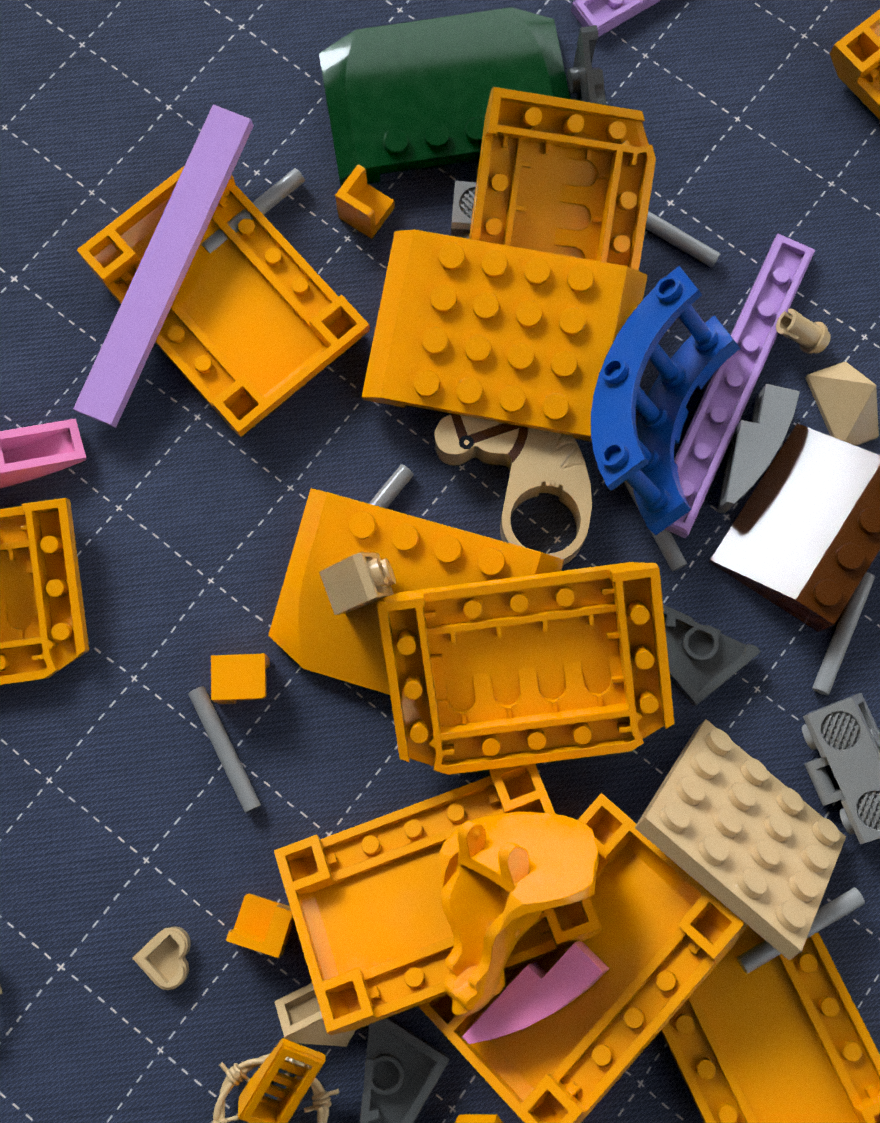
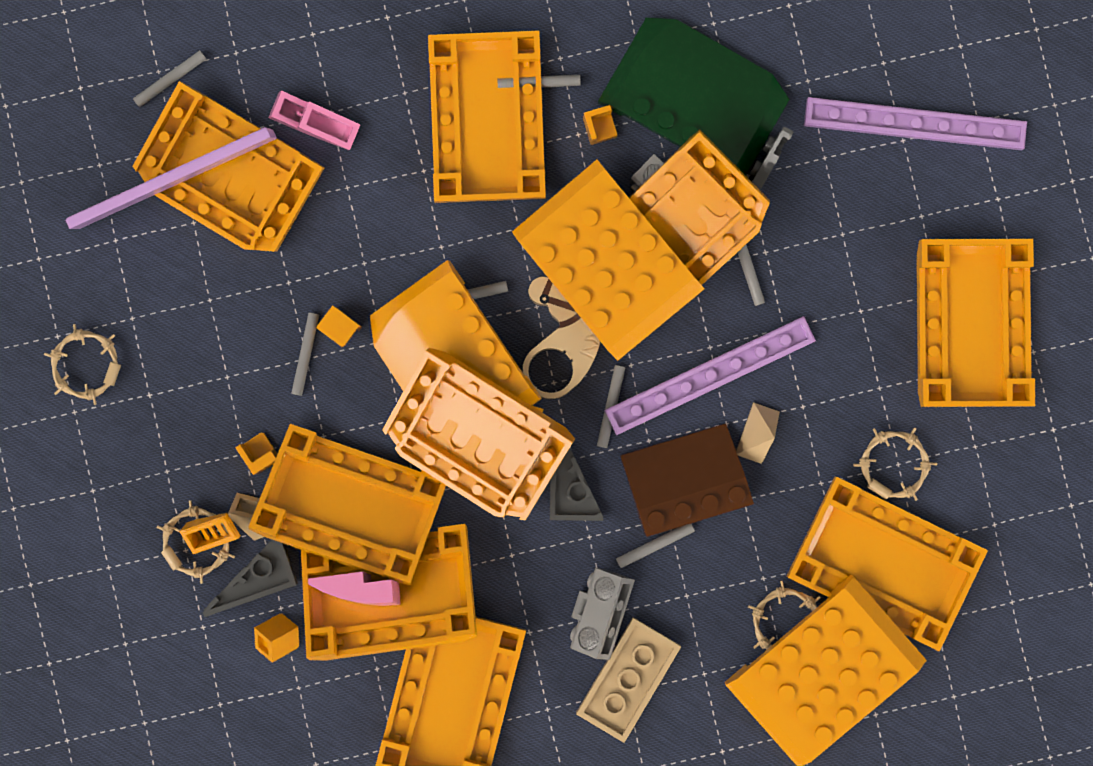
camera: 35 degrees right, 10 degrees up
(164, 266) = (467, 79): lavender tile -> none
(165, 958) = (201, 431): tan tile -> none
(357, 581) = (429, 330): tan slope -> none
(496, 885) = (380, 524): light orange animal -> none
(645, 451) = (658, 363): blue fence -> none
(744, 837) = (514, 597): tan plate -> none
(756, 442) = (691, 418): light grey slope -> none
(810, 335) = (771, 384): tan pin -> none
(824, 917) = (507, 662): light grey bar -> none

